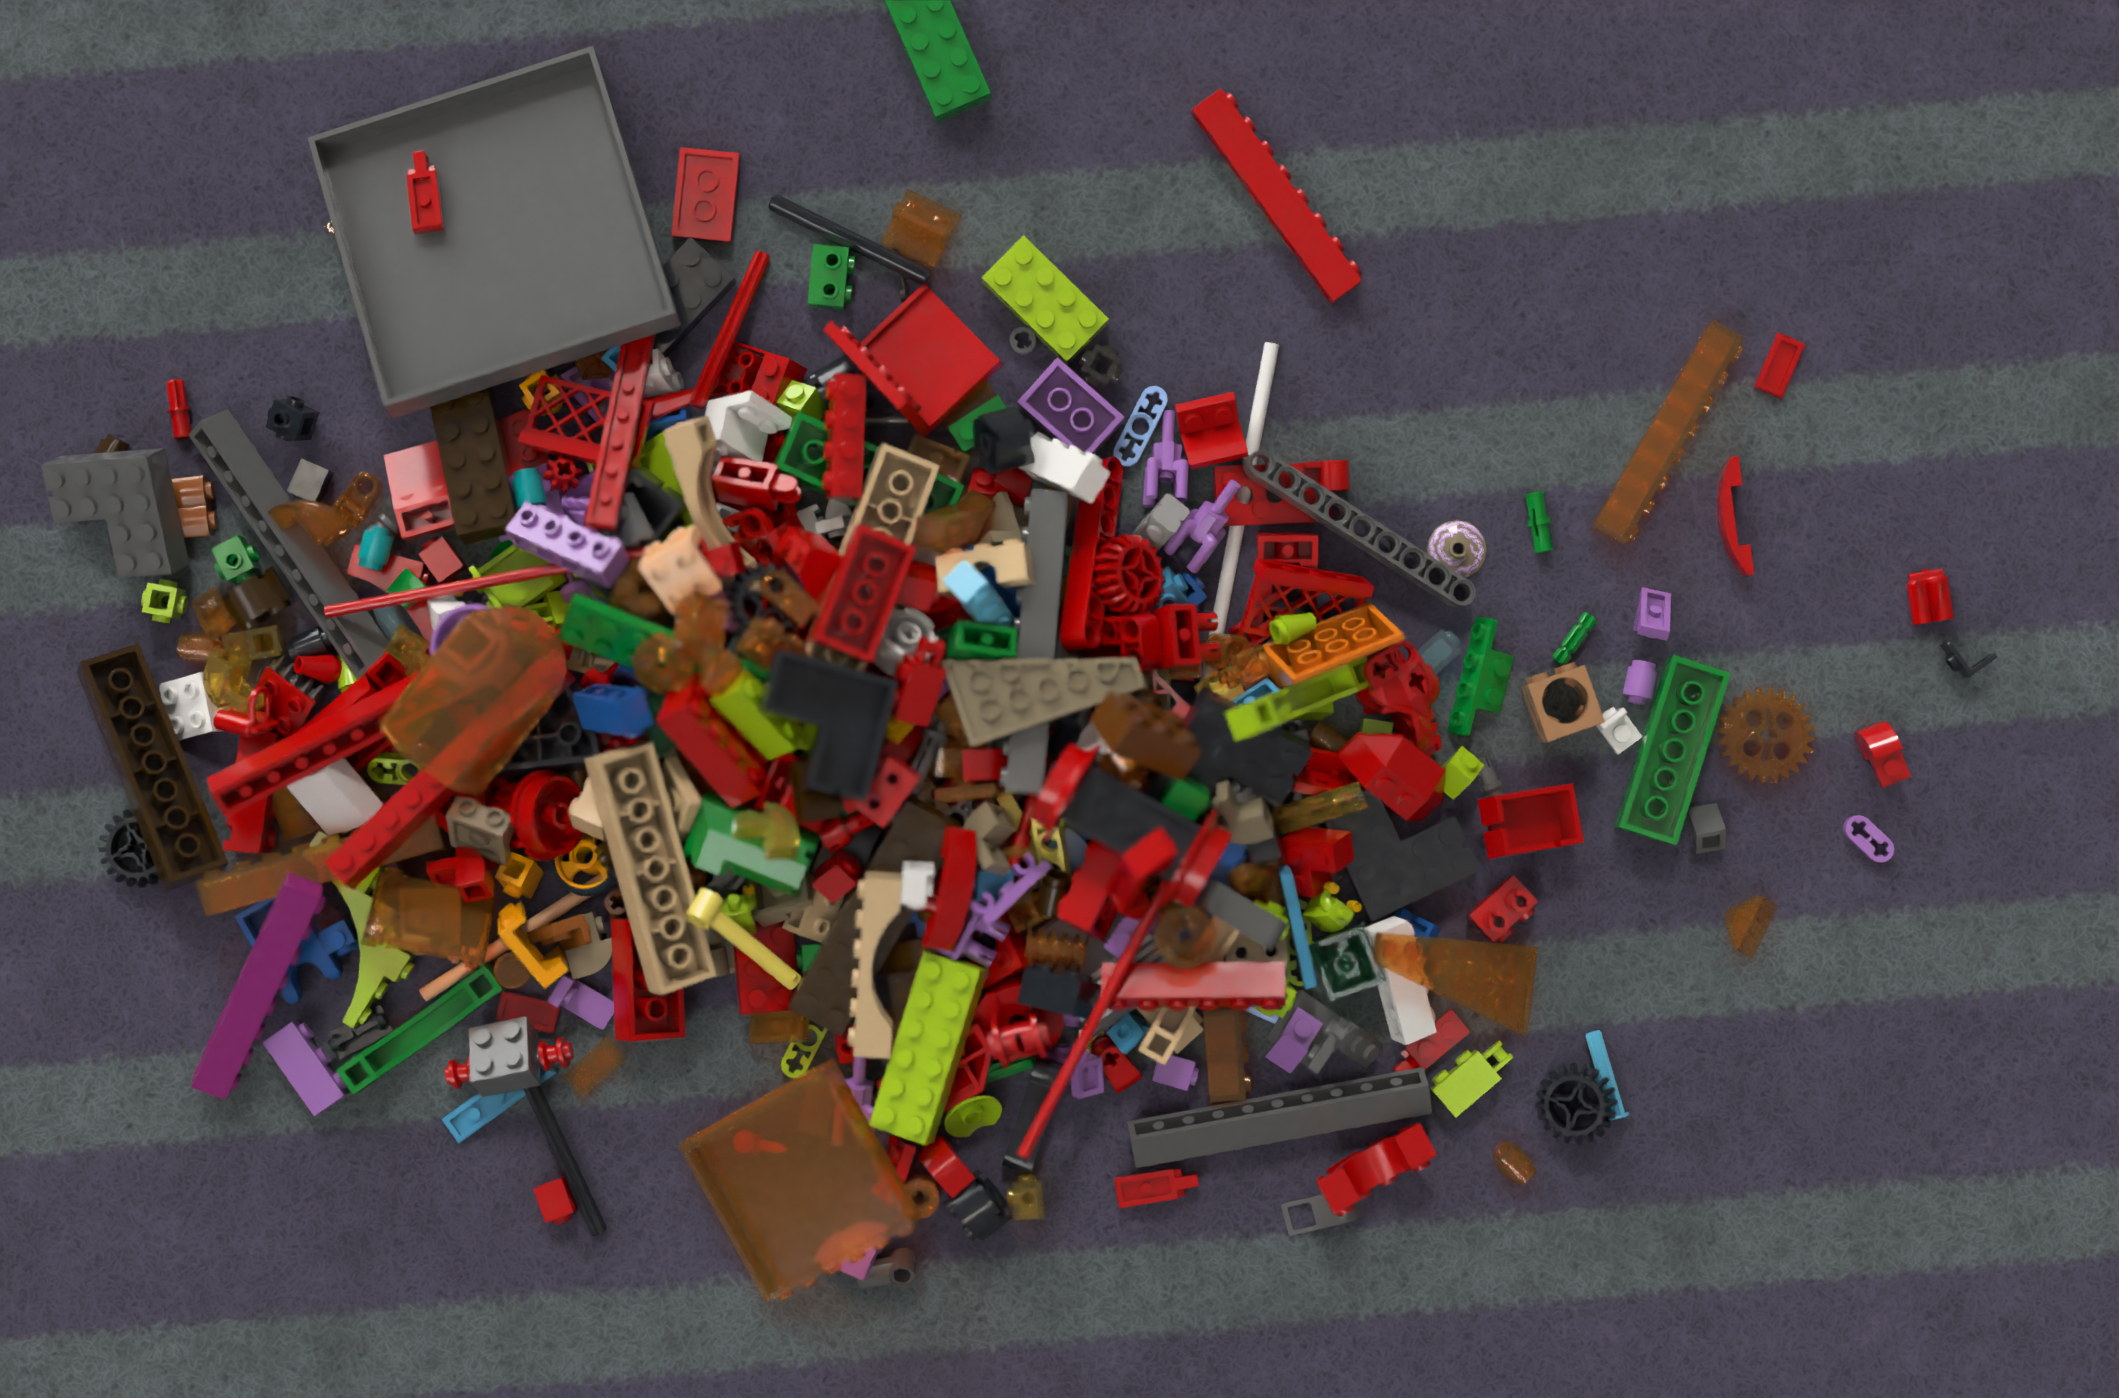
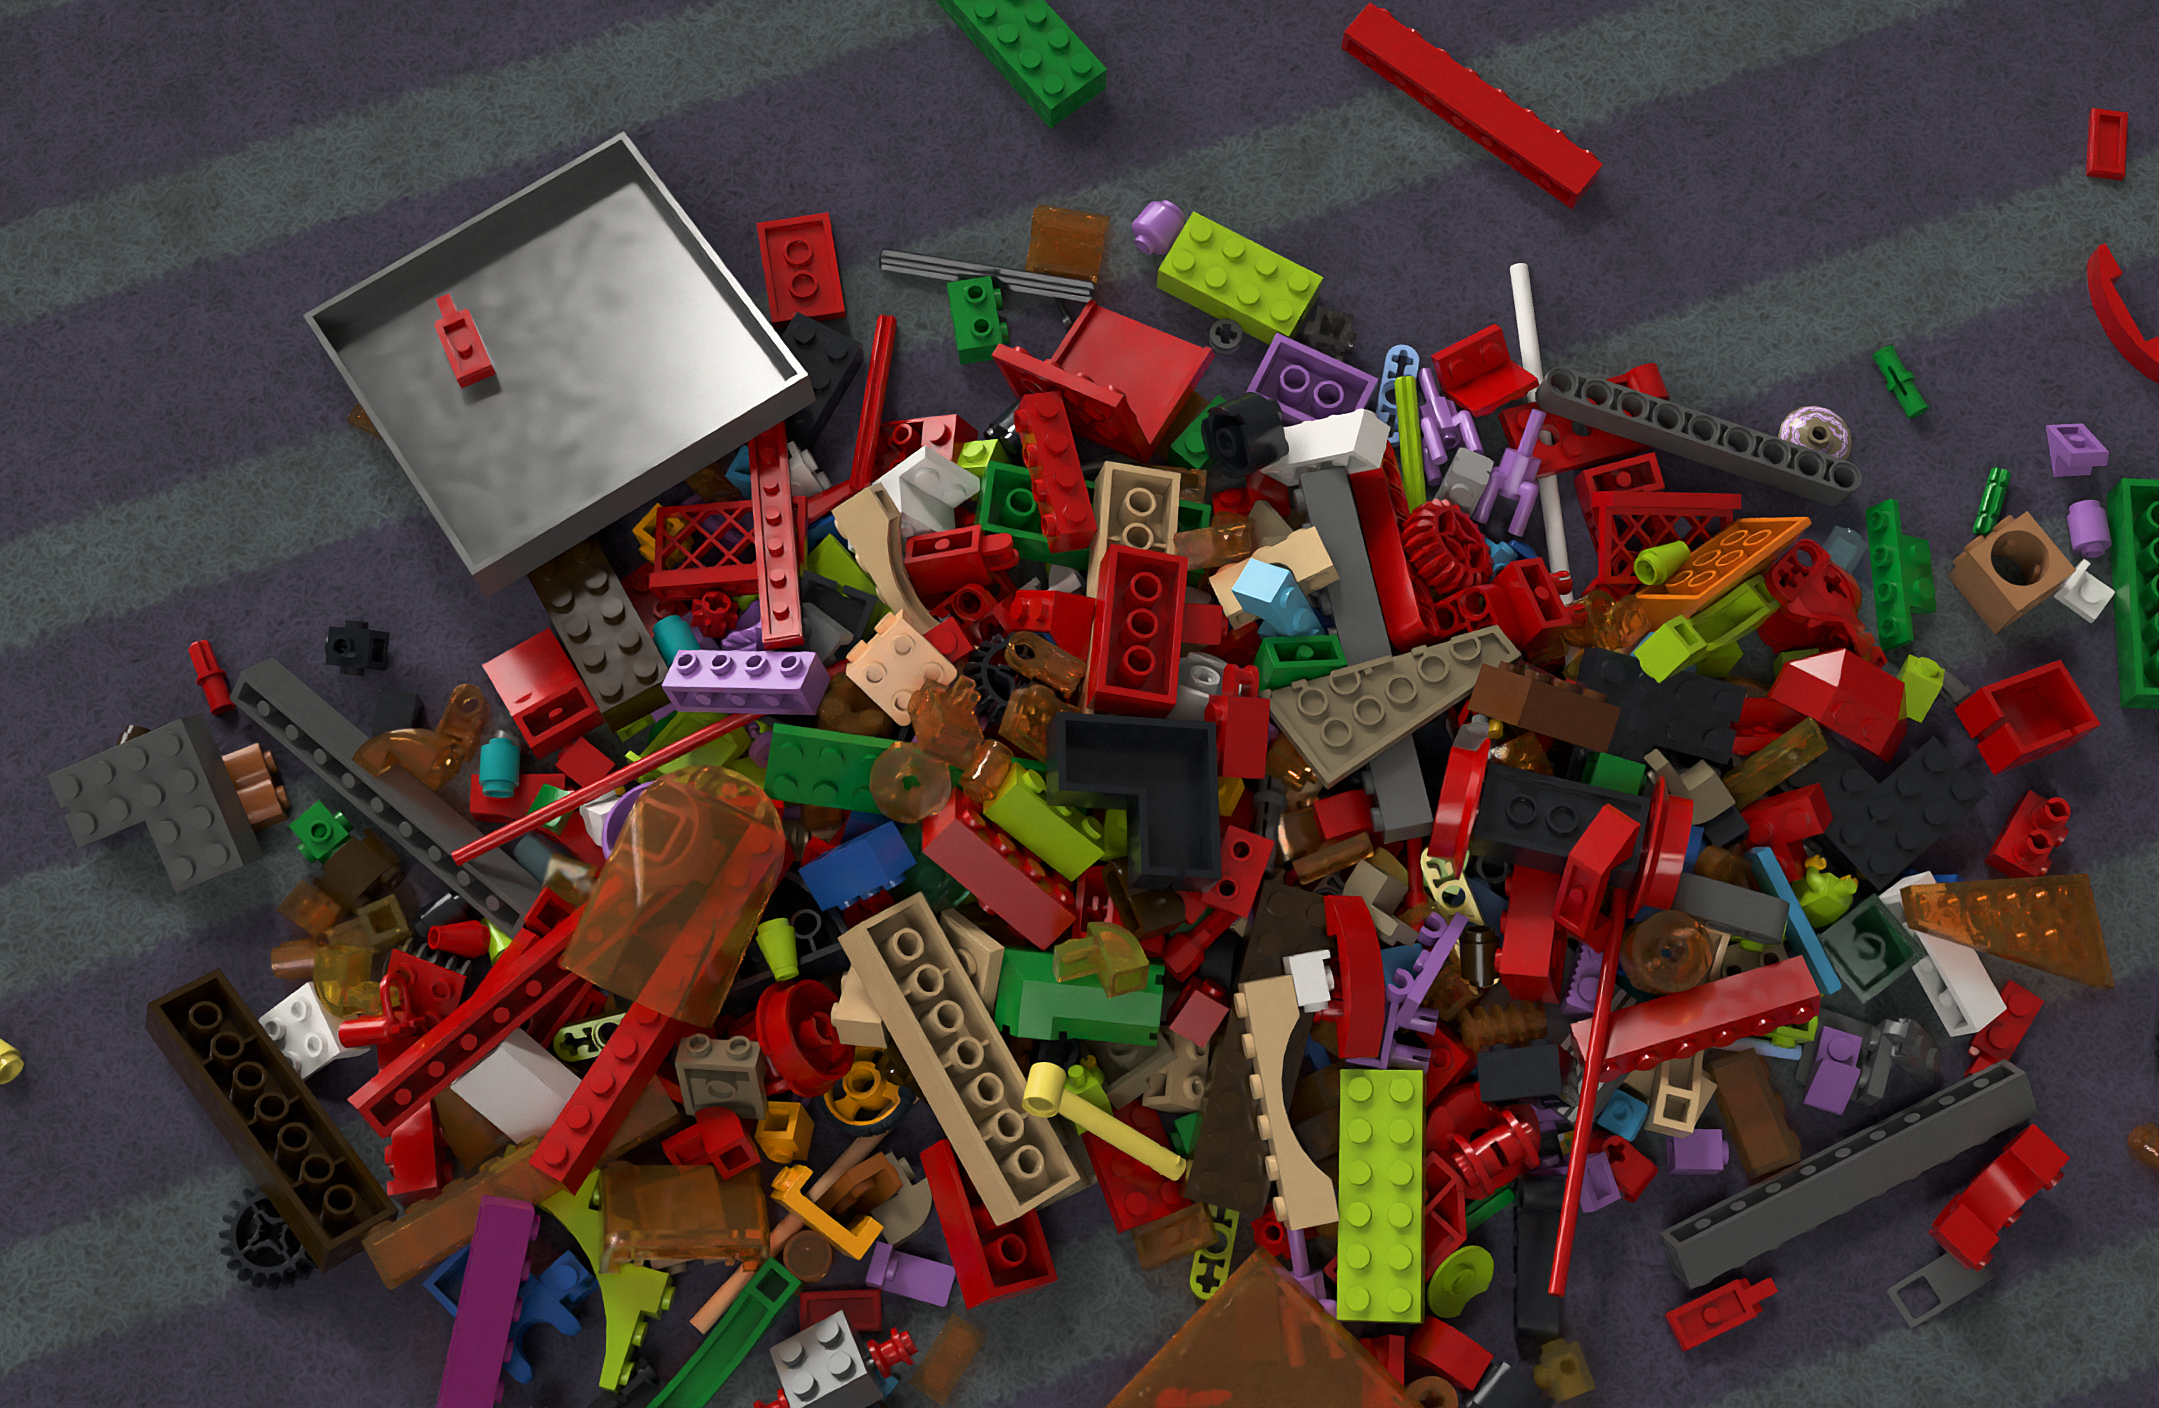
camera: 15 degrees left, 15 degrees down
(153, 600) = (232, 901): lime brick -> none
(543, 749) = (779, 948): none -> lime cone
(619, 912) = (922, 1132): reddish brown bush -> none
(995, 237) = (1158, 227): none -> medium lavender head
(1136, 476) = (1410, 441): none -> lime axle
(1469, 1078) = (2066, 1058): lime brick -> none
(1667, 433) = (2011, 246): clear orange brick -> none

